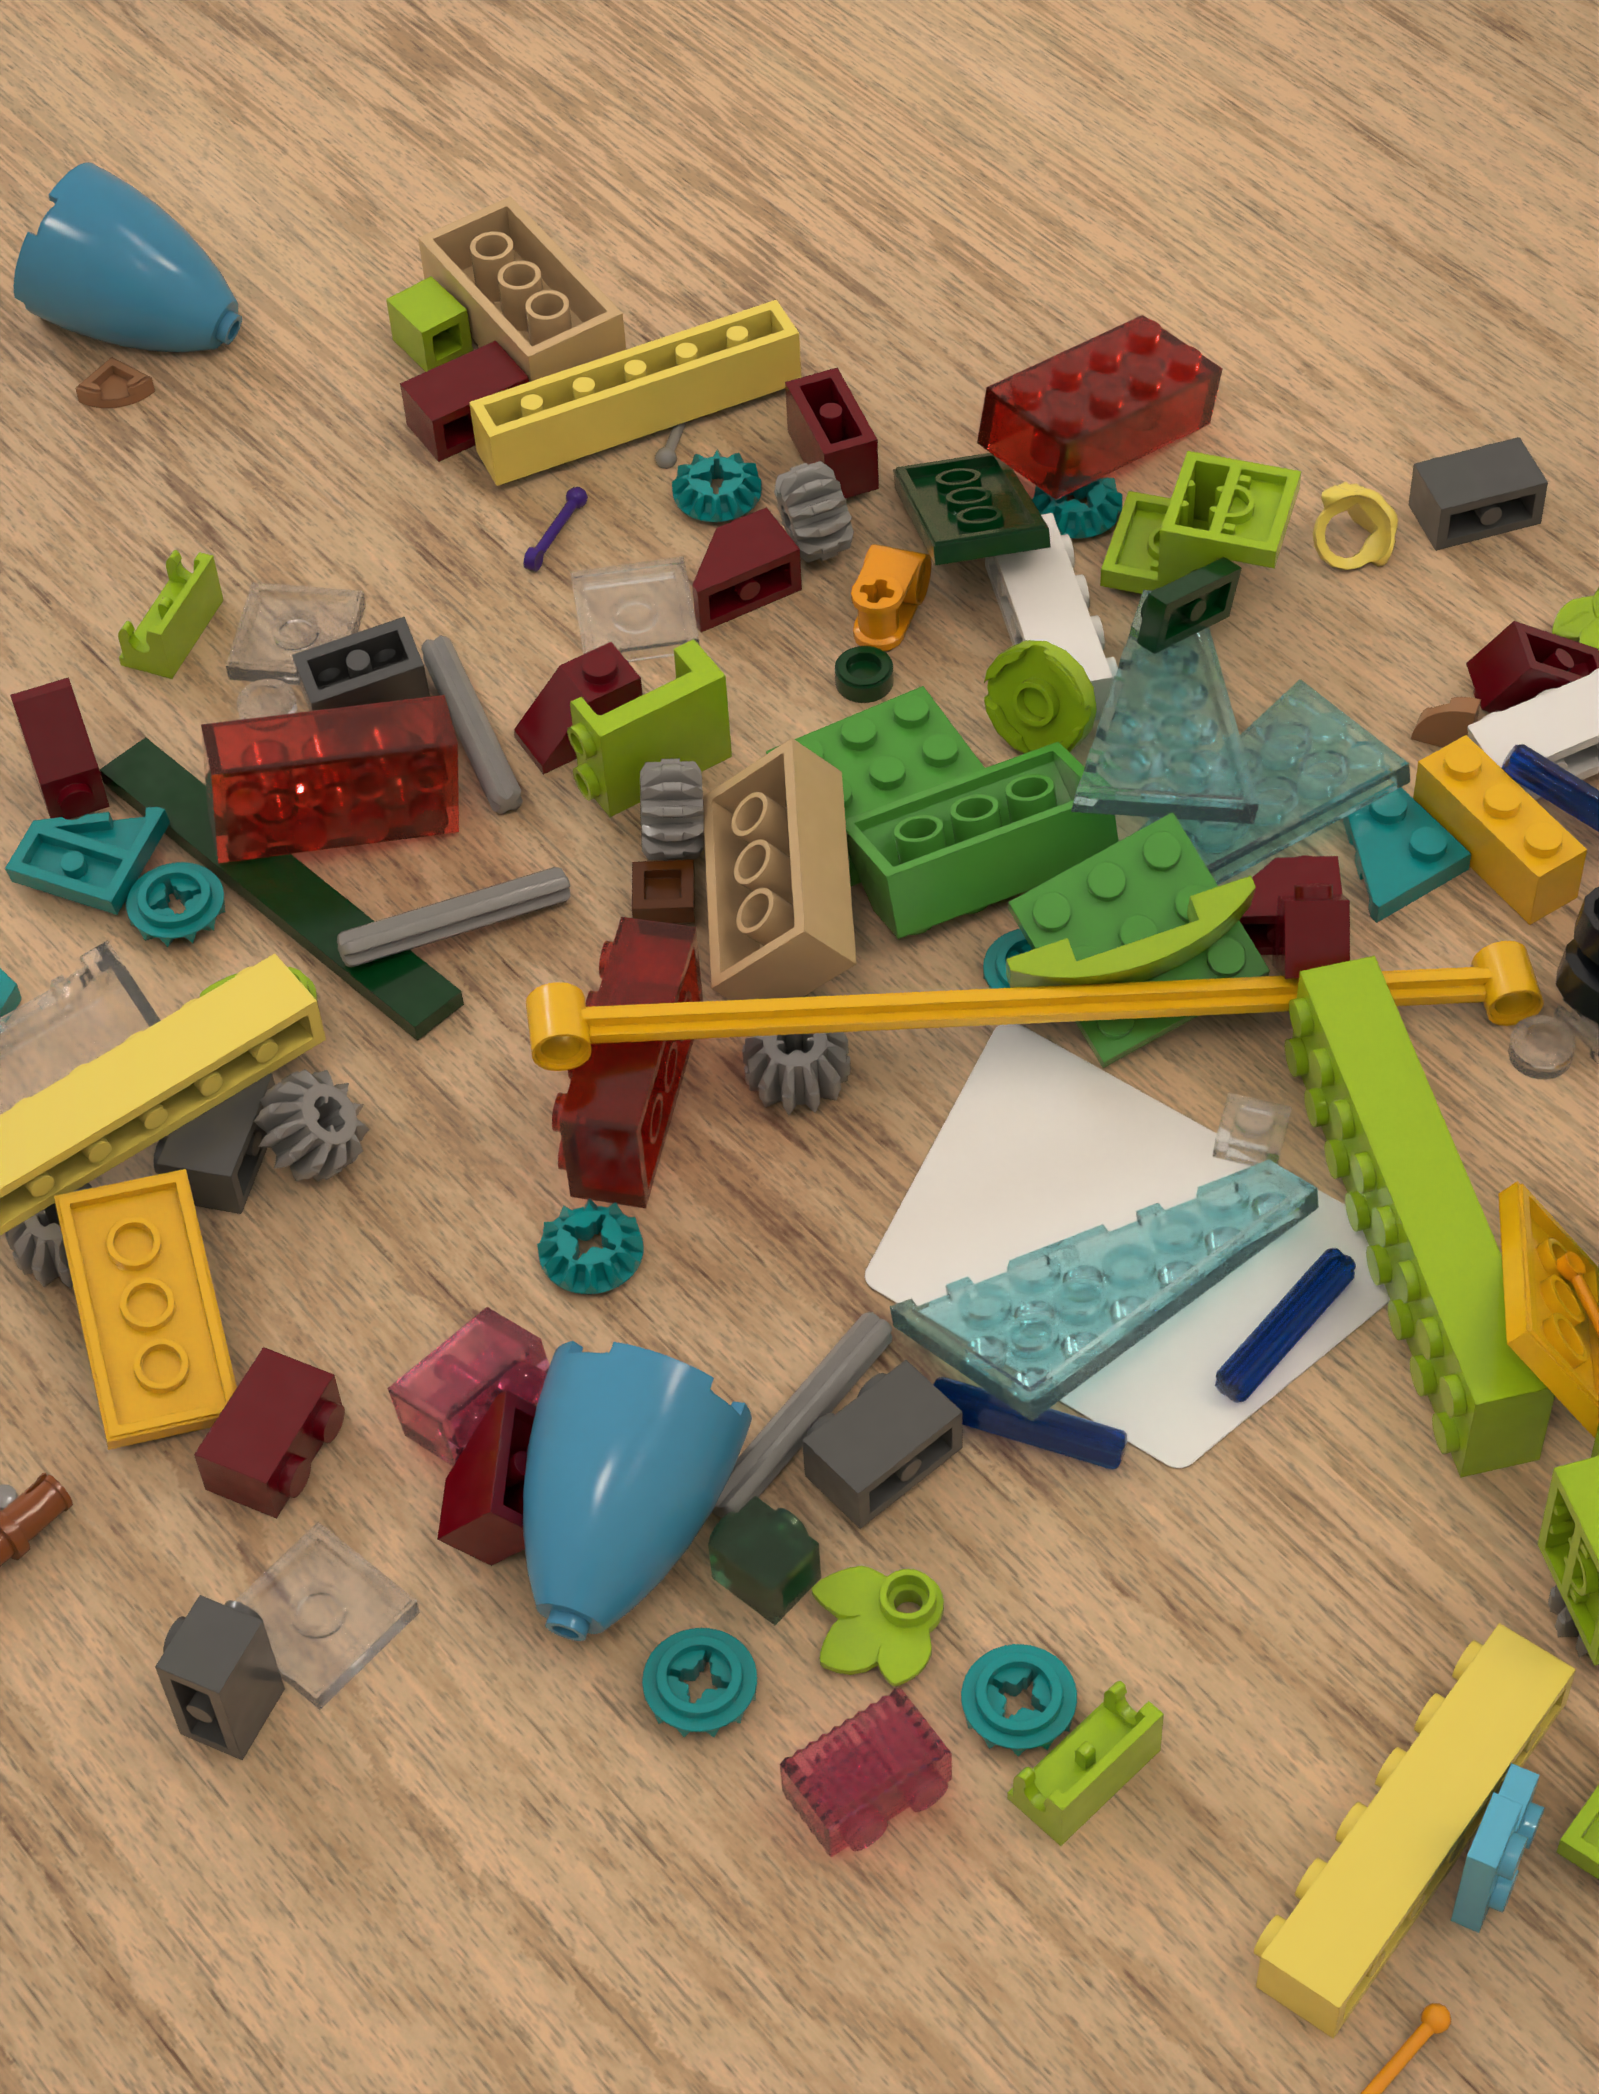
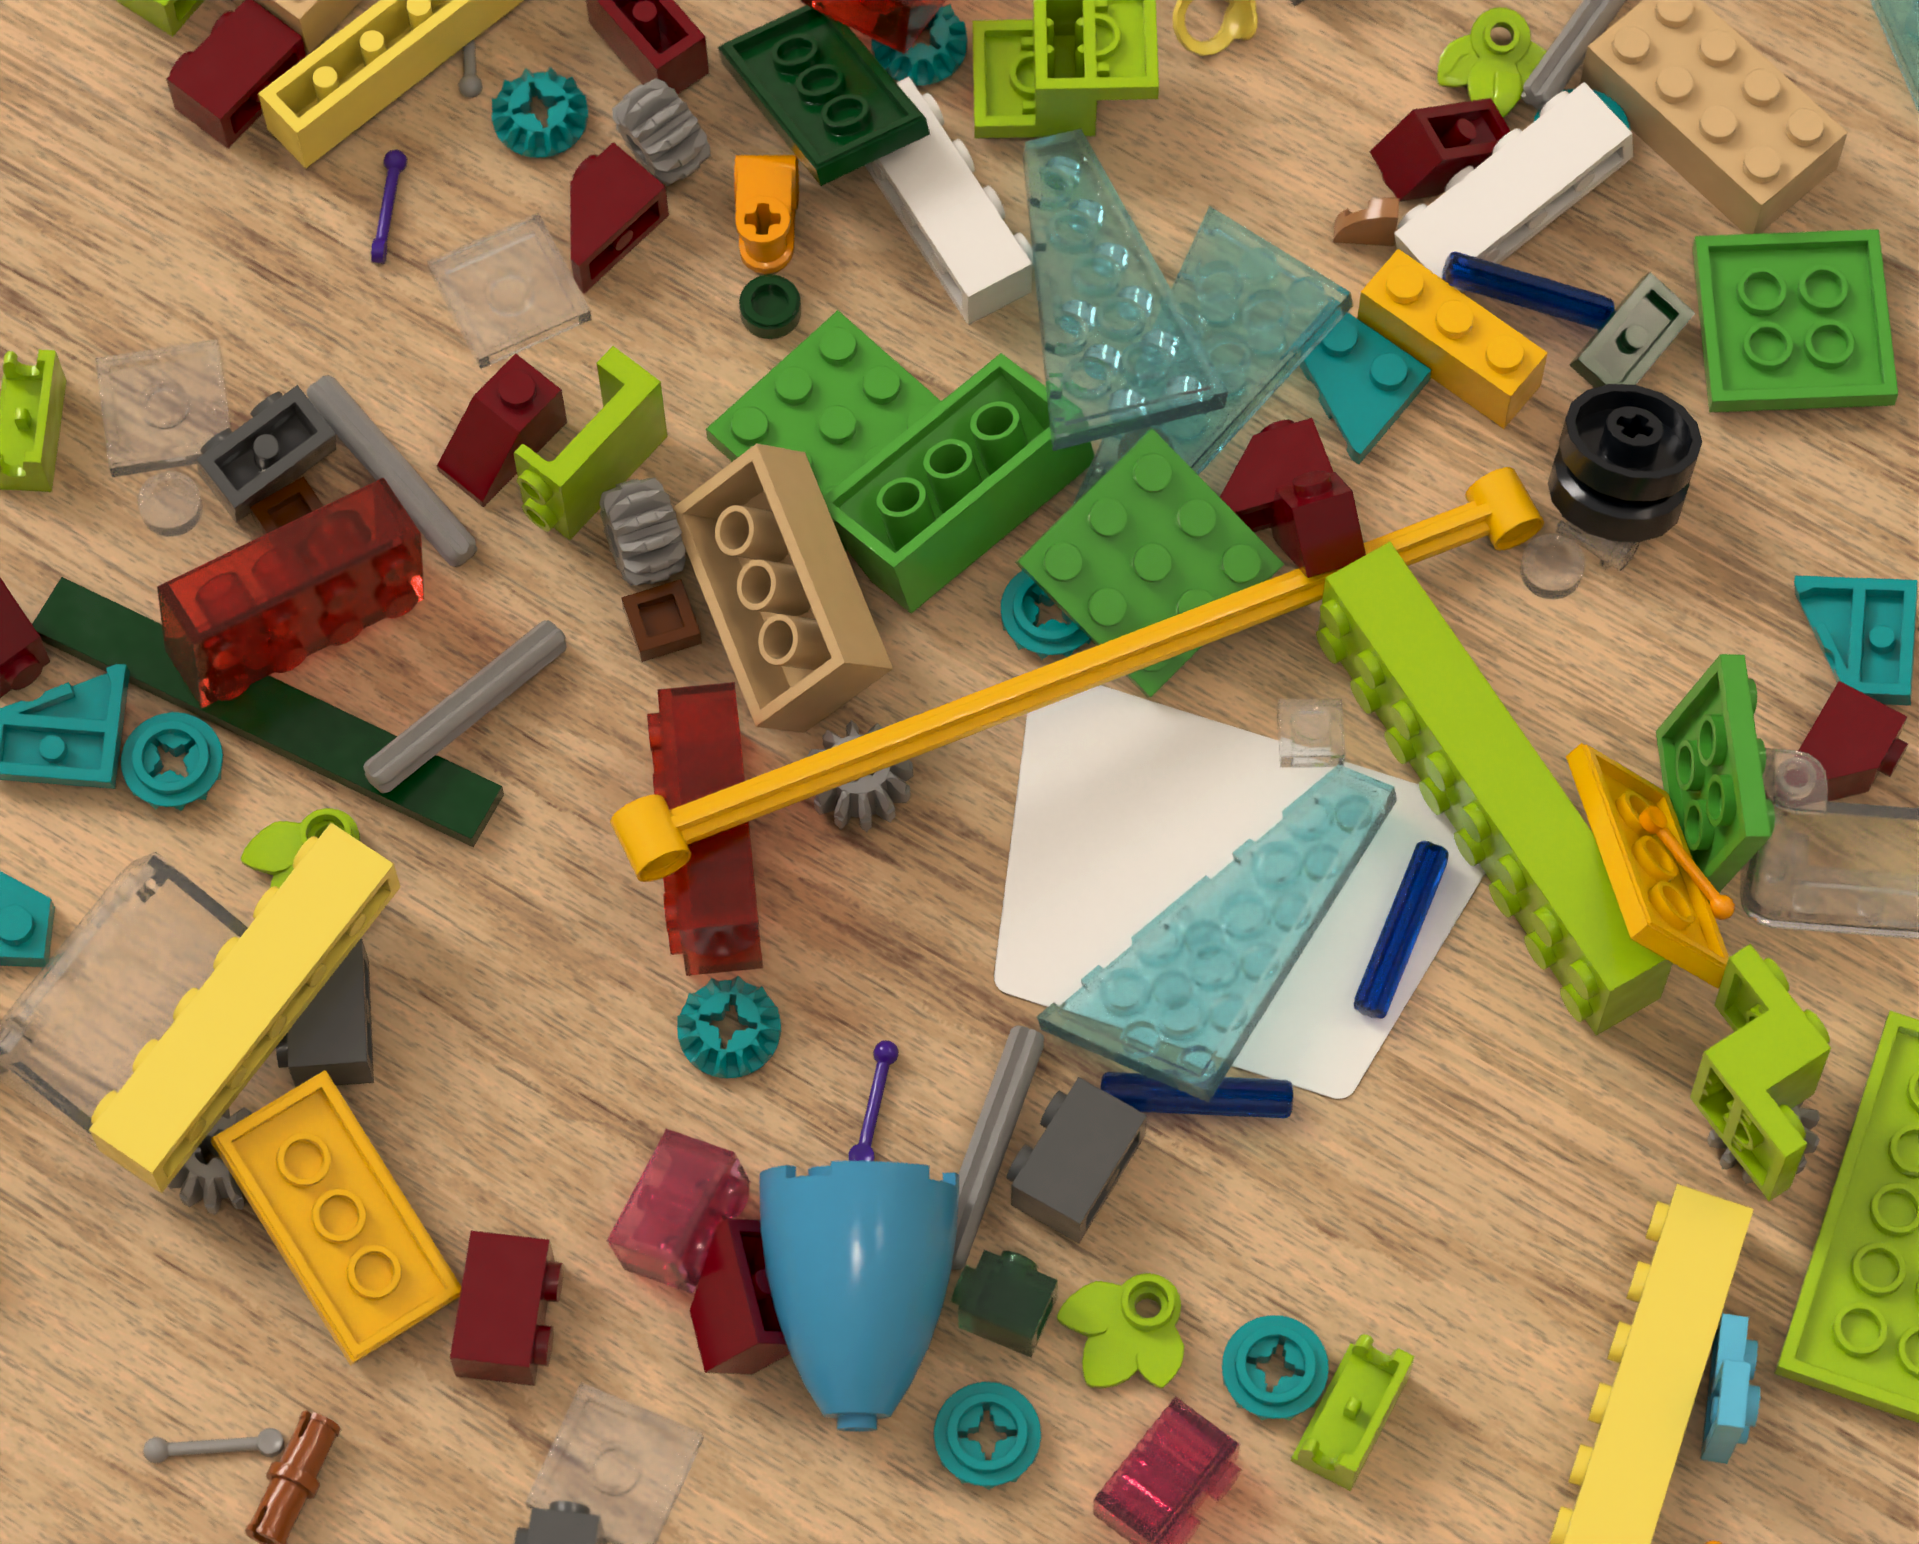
camera: 20 degrees left, 15 degrees up
(311, 1125) = (419, 981): light grey gear -> none
(732, 1309) = (885, 1054): none -> dark purple hinge
(1039, 697) = (967, 308): lime tile -> none
(1188, 605) = (1088, 155): dark green plate -> none
(1210, 918) = (1221, 539): lime slope -> none

